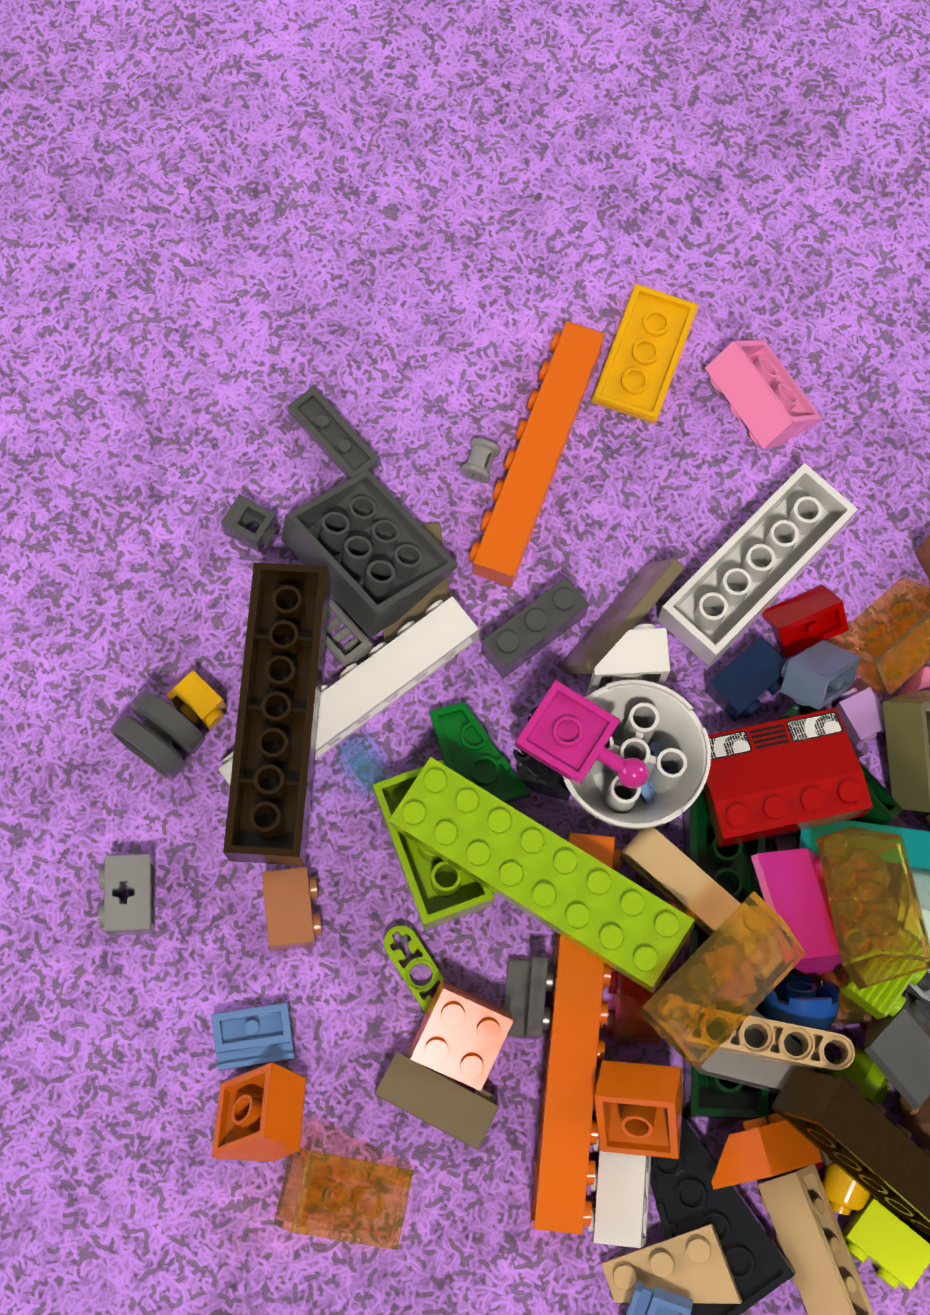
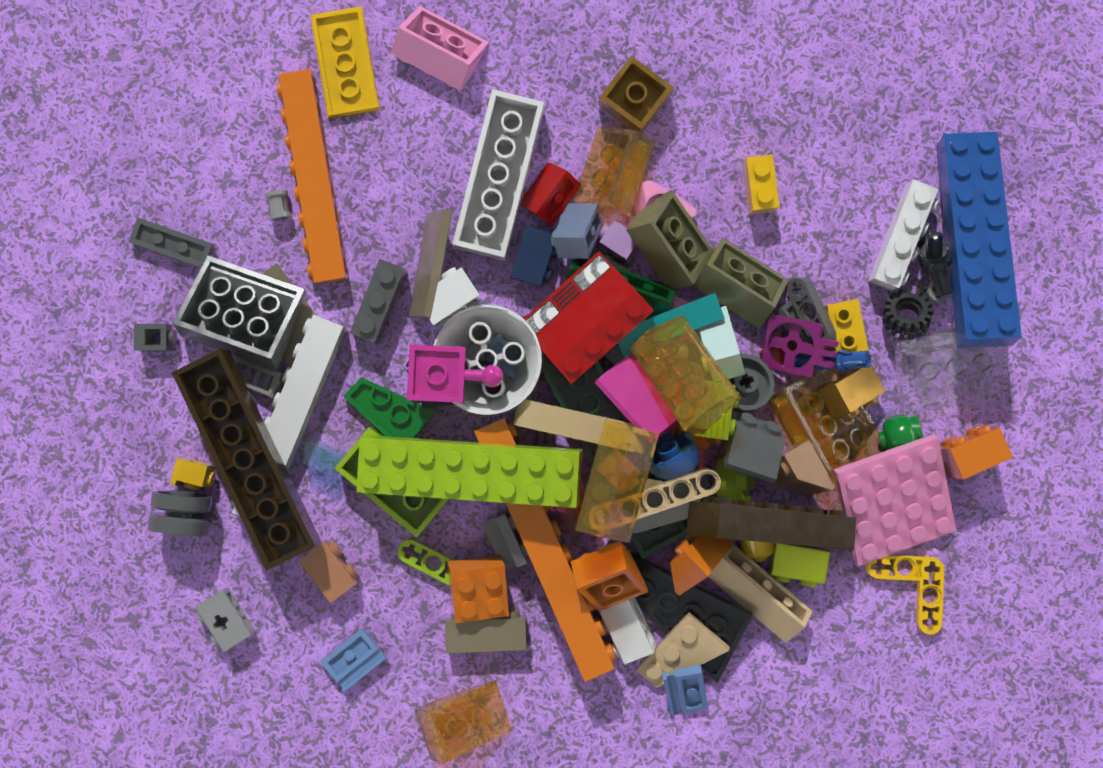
camera: 25 degrees left, 15 degrees up
(260, 1115) = (385, 704): orange slope -> none

